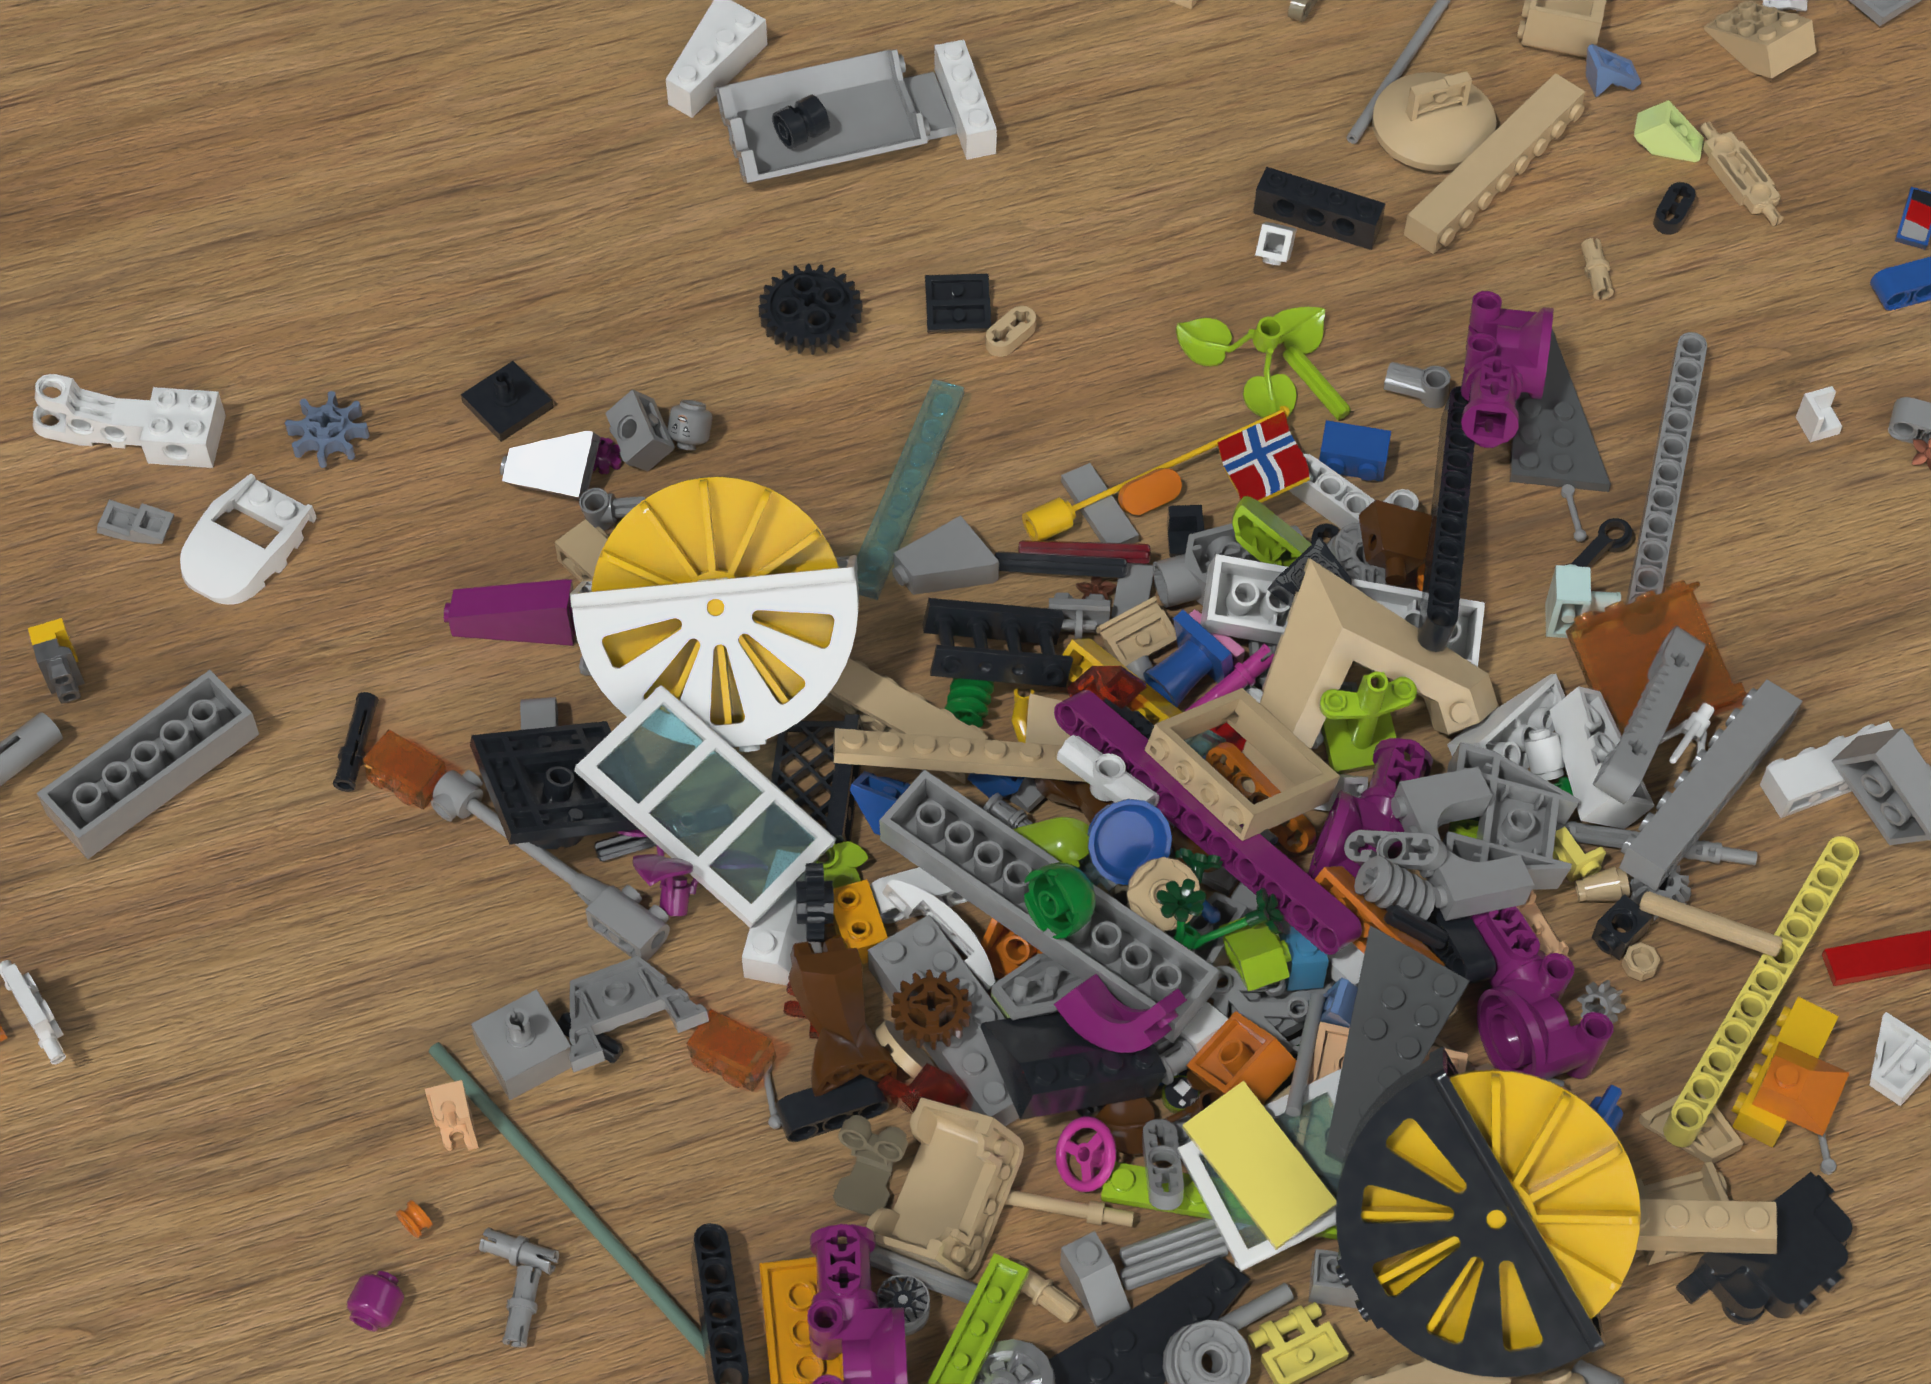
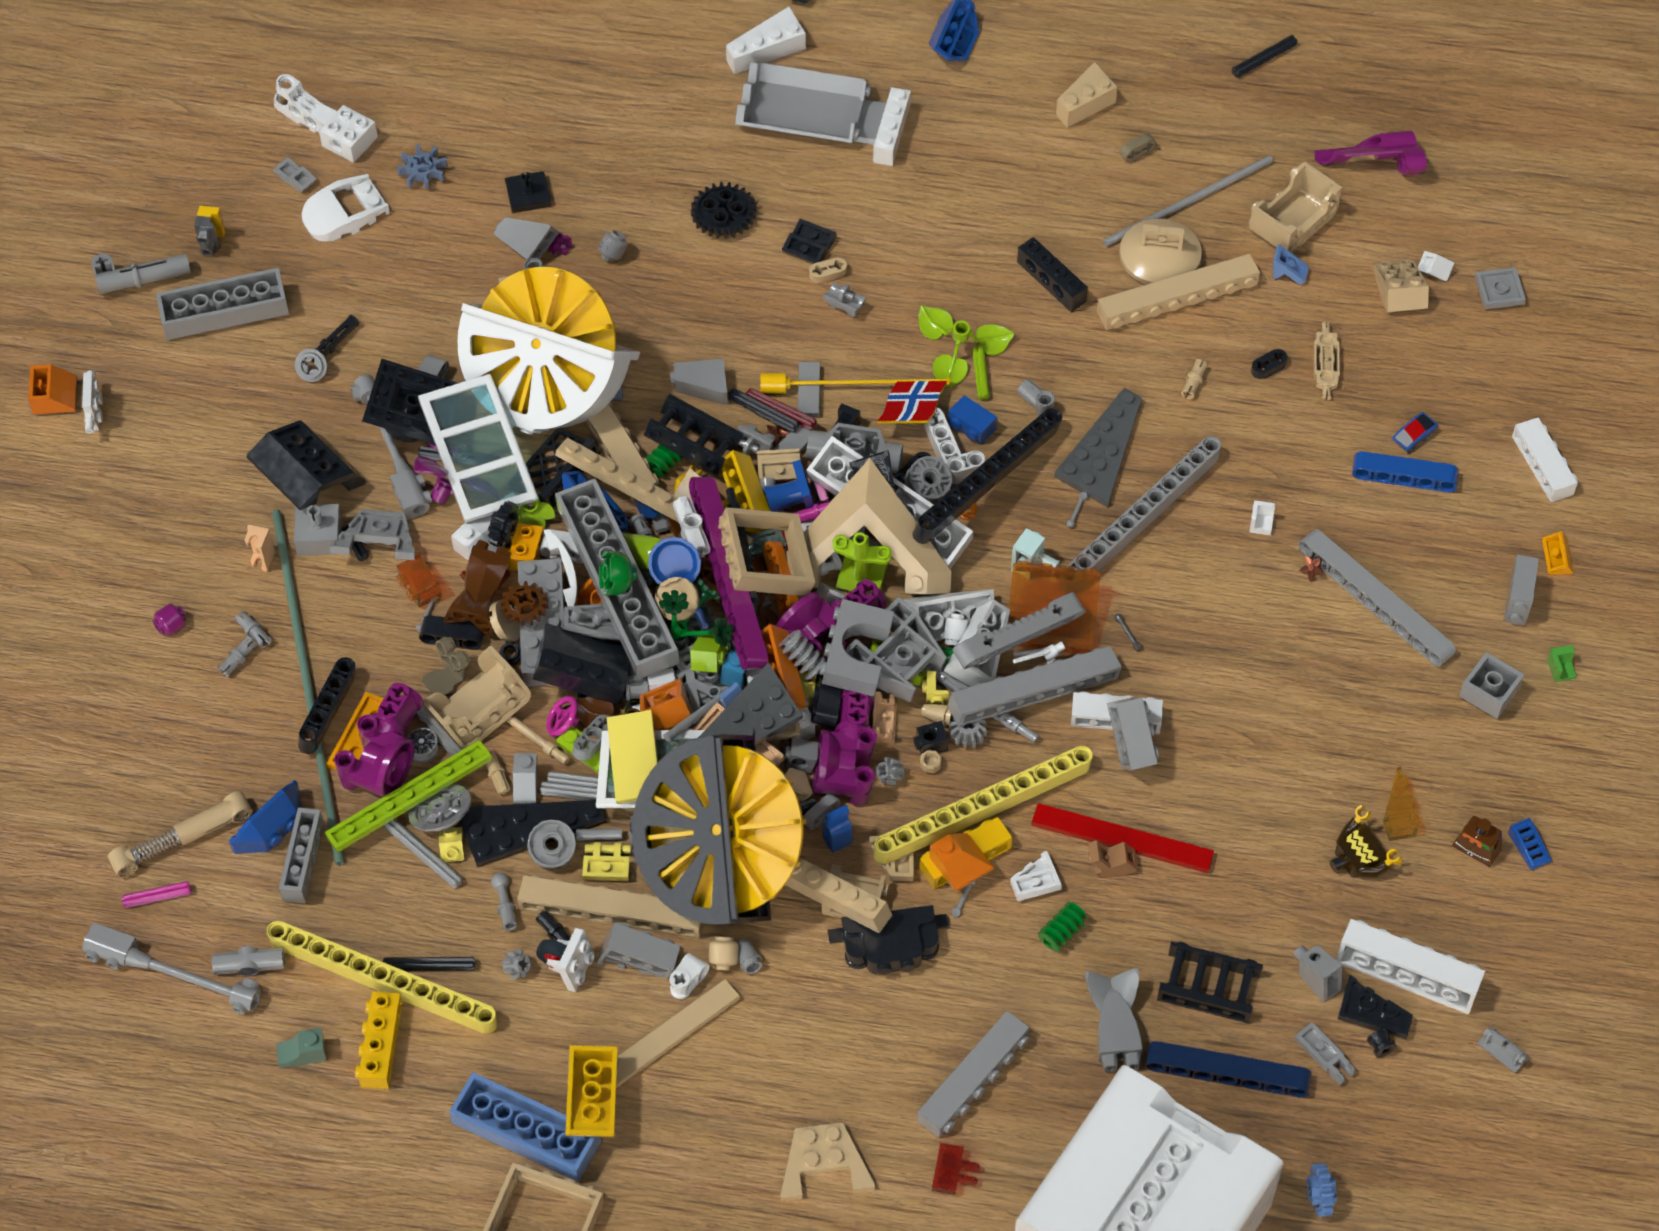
camera: 30 degrees right, 0 degrees up
(361, 806) = (302, 367): none -> light grey gear
(403, 769) = (347, 363): clear orange brick -> none
(414, 1219) = (212, 589): orange bush -> none
(442, 956) = (295, 463): none -> black slope
(514, 612) = (445, 301): magenta slope -> none
(639, 430) = (584, 237): light grey brick -> none
(803, 120) = (787, 101): black wheel -> none
(906, 486) = (709, 331): clear light blue plate -> none
(928, 1084) = (500, 642): clear red slope -> none
(1066, 360) = (844, 299): none -> light grey hips
(1109, 682) = (729, 481): clear red slope -> none
(1112, 1025) = (606, 649): magenta arch -> none
(1149, 491) = (841, 392): orange tile -> none
(1266, 534) = (873, 438): lime brick -> none
(1275, 243) = (1011, 283): white brick -> none
(1394, 538) = (947, 473): reddish brown torso -> none
(1407, 859) = (818, 639): light grey beam -> none
(1416, 927) = (801, 678): black axle -> none
(1470, 1035) = (801, 754): none -> light grey brick
(1503, 358) = (1093, 406): magenta piece -> none
(1603, 543) = (1055, 541): black piece -> none
(1668, 133) = (1296, 318): yellowish green slope -> none
(1711, 923) = (974, 756): tan axle -> none
(1785, 663) = (1136, 645): none -> flat silver hinge

